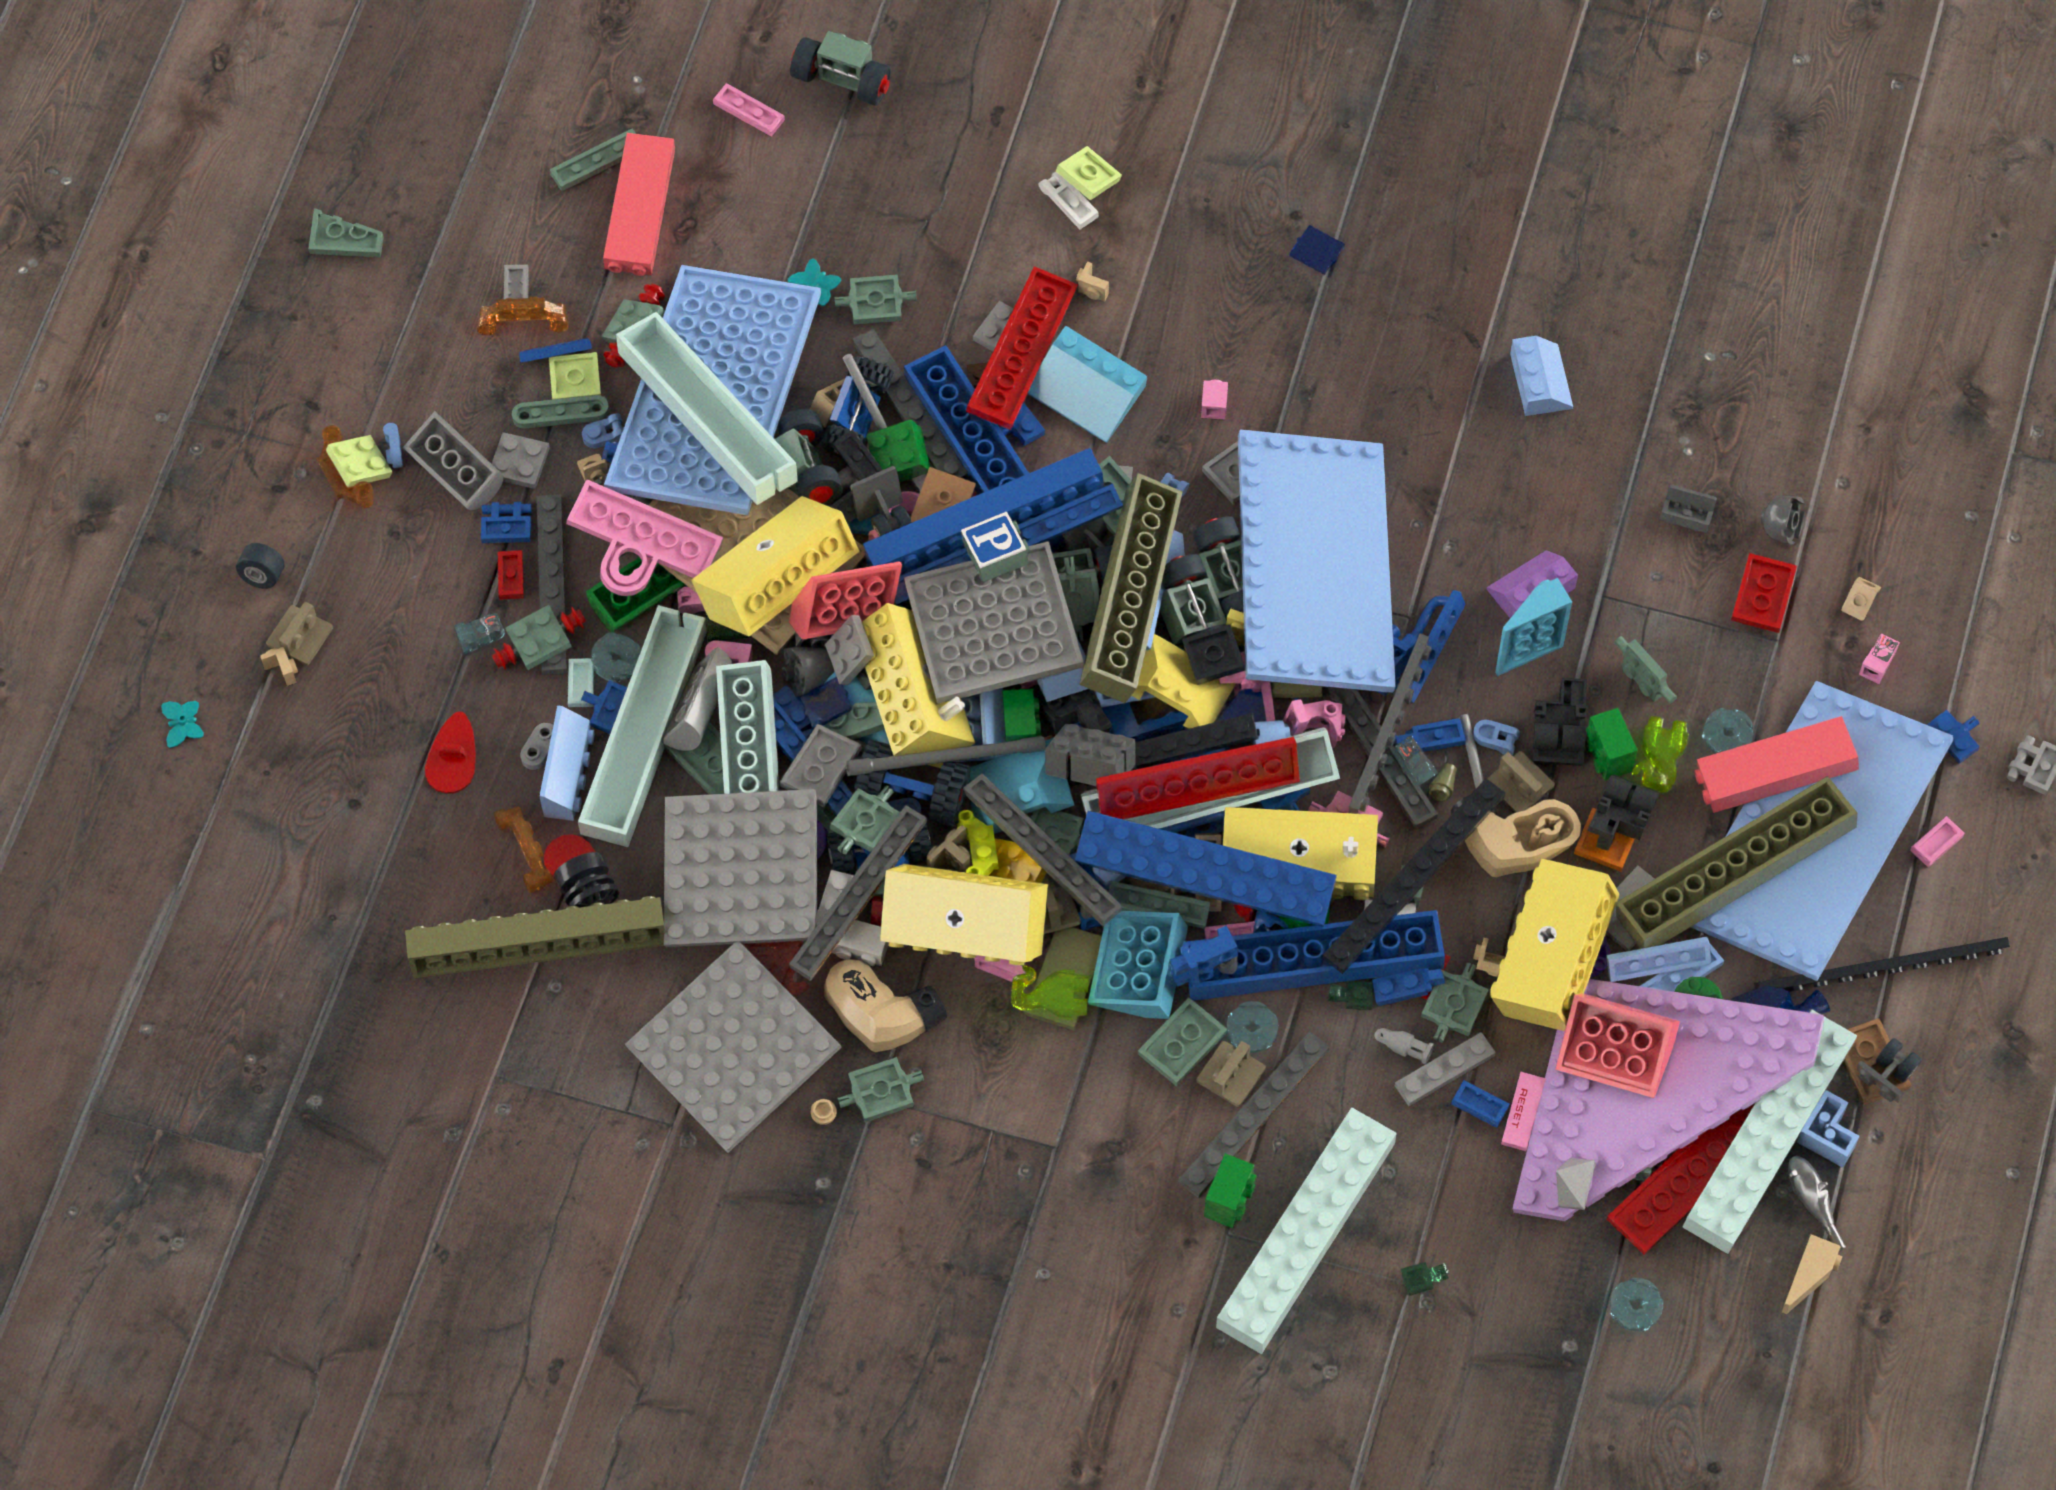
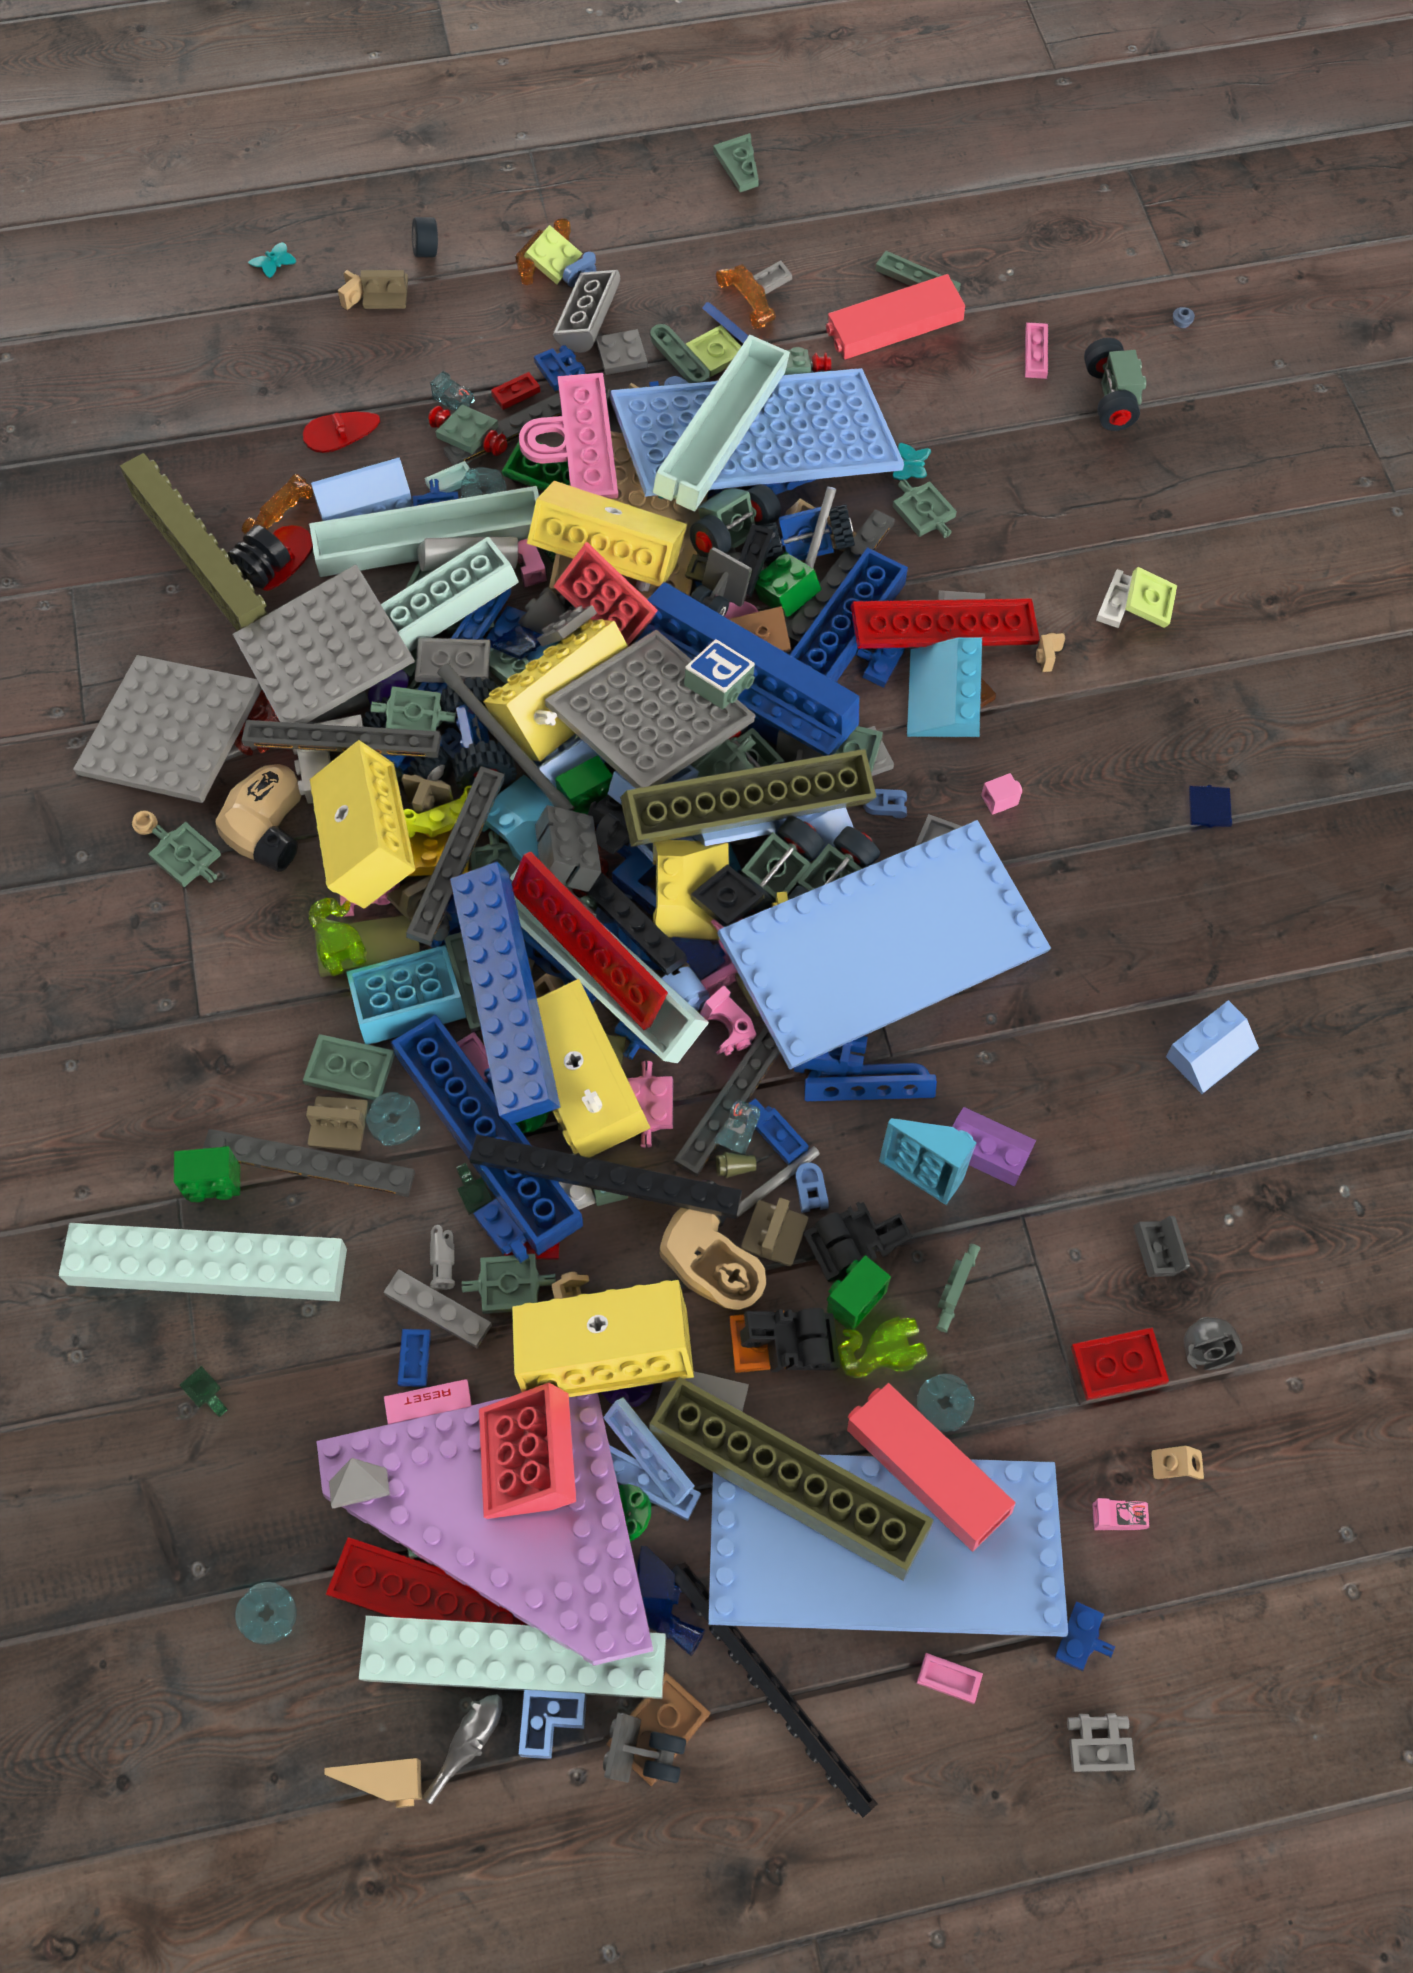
camera: 60 degrees right, 0 degrees up
(1203, 958) = (415, 1035): blue hips -> none
(1394, 716) = (744, 1084): dark grey plate -> none

